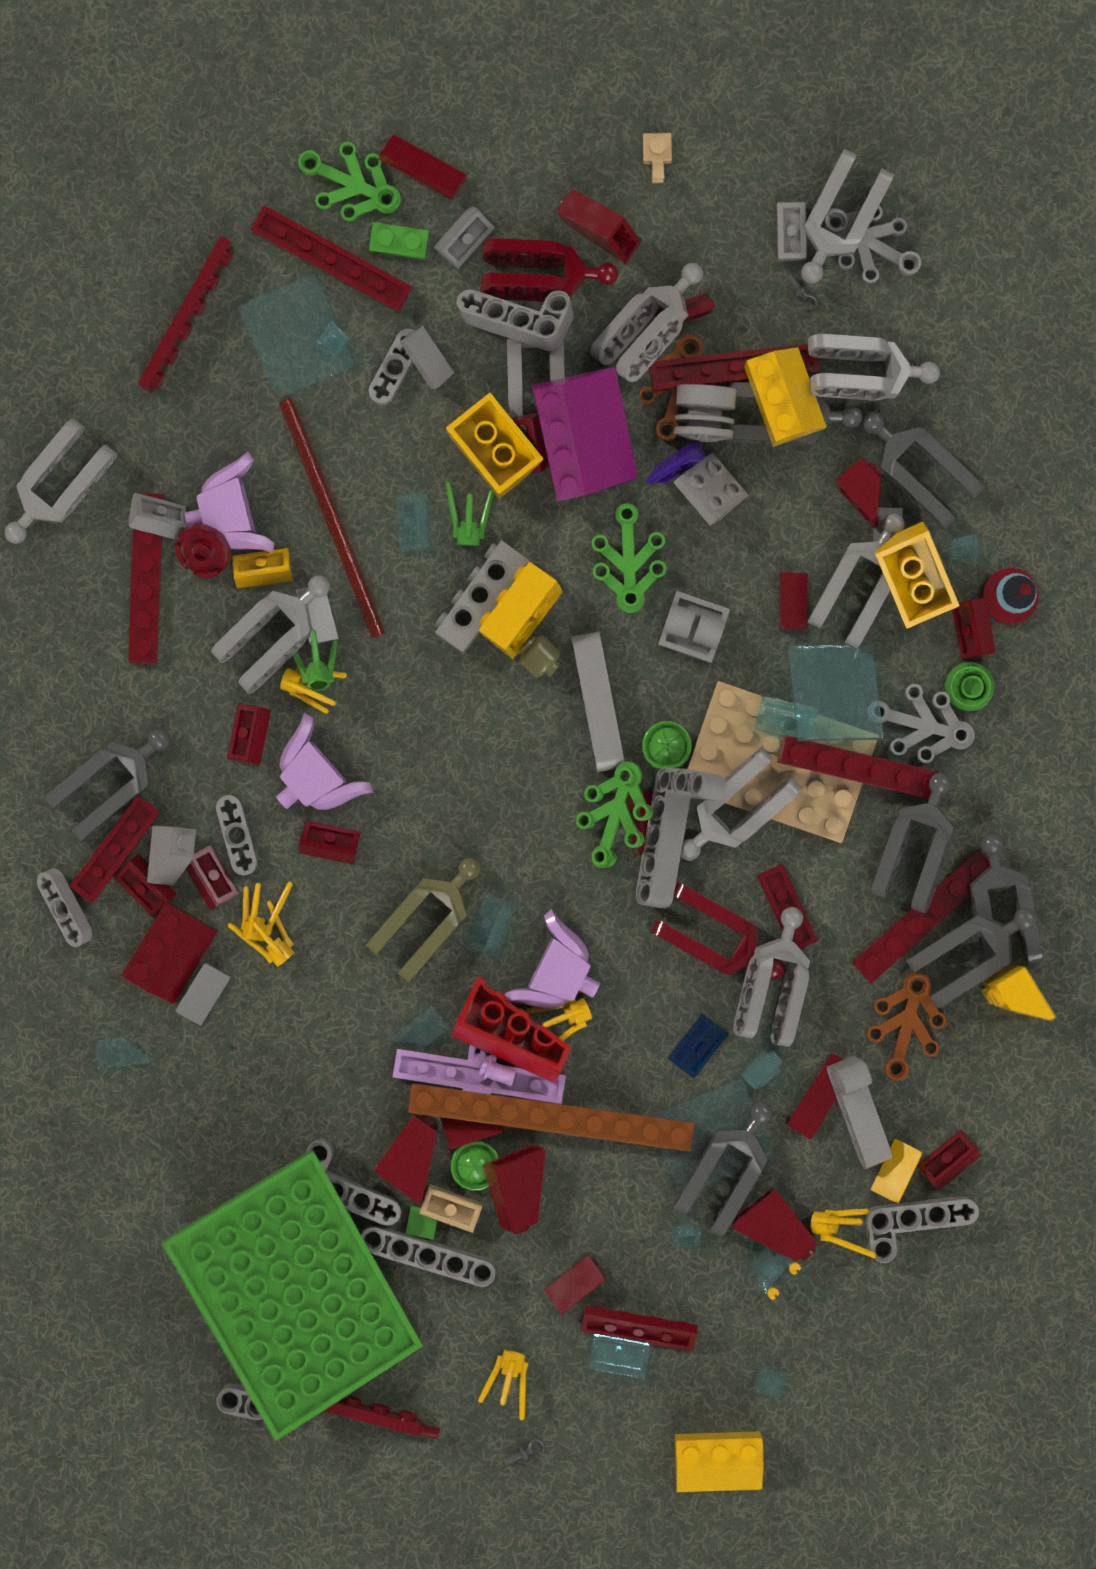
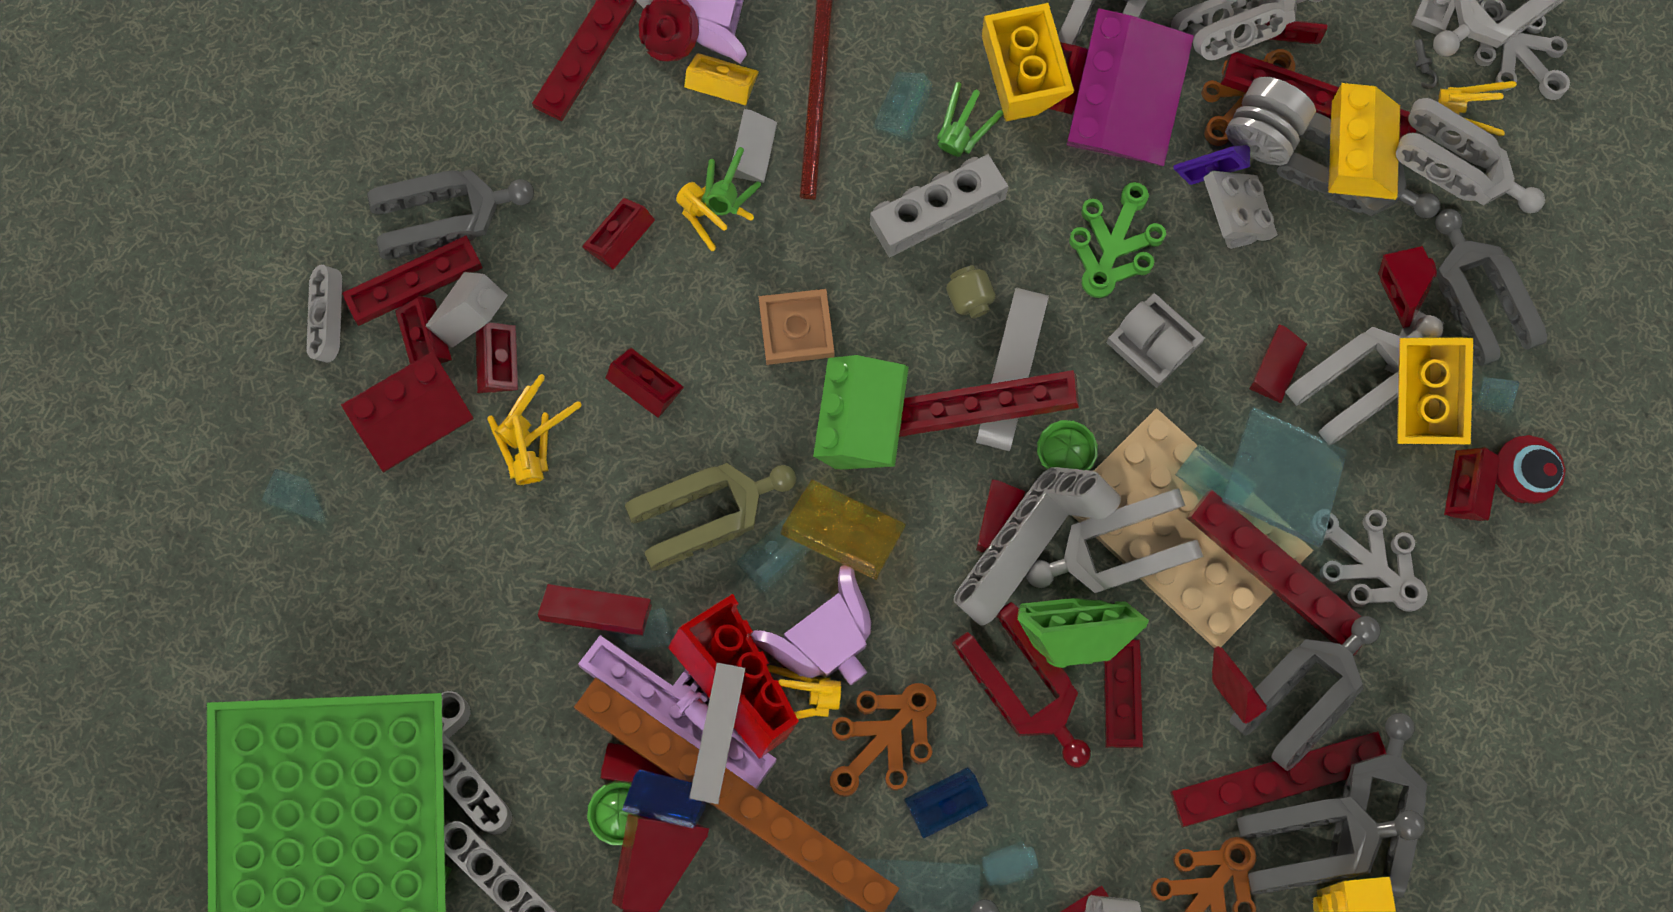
camera: 25 degrees right, 15 degrees down
(202, 994) = (419, 474): light grey slope -> none
(224, 816) = (545, 302): light grey beam -> none
(295, 609) = (684, 120): light grey piece -> none
(312, 775) = (662, 301): lavender torso -> none
(383, 1032) = (595, 609): none -> dark red tile
(409, 1157) = (550, 766): dark red slope -> none
(420, 1225) = (525, 851): bright green tile -> none
(421, 746) = (796, 326): none -> medium nougat plate
(451, 1208) = (565, 849): tan slope -> none
(503, 794) = (860, 412): none -> bright green slope
(505, 1144) = (663, 799): none -> clear blue slope
(519, 1084) = (717, 733): none -> light grey sticker
(520, 609) = (975, 230): yellow slope -> none
(533, 887) = (843, 529): none -> clear yellow plate
(584, 751) = (989, 403): none -> dark red plate
(616, 810) = (976, 491): bright green plant -> none
(634, 1019) = (887, 735): none -> dark orange plant
(735, 880) = (1080, 629): none -> bright green wedge
(792, 989) = (1090, 784): light grey piece -> none
(838, 317) = (1457, 99): none -> yellow plant
(866, 869) = (1236, 687): none -> dark red slope
(977, 690) = (1449, 554): bright green hat -> none

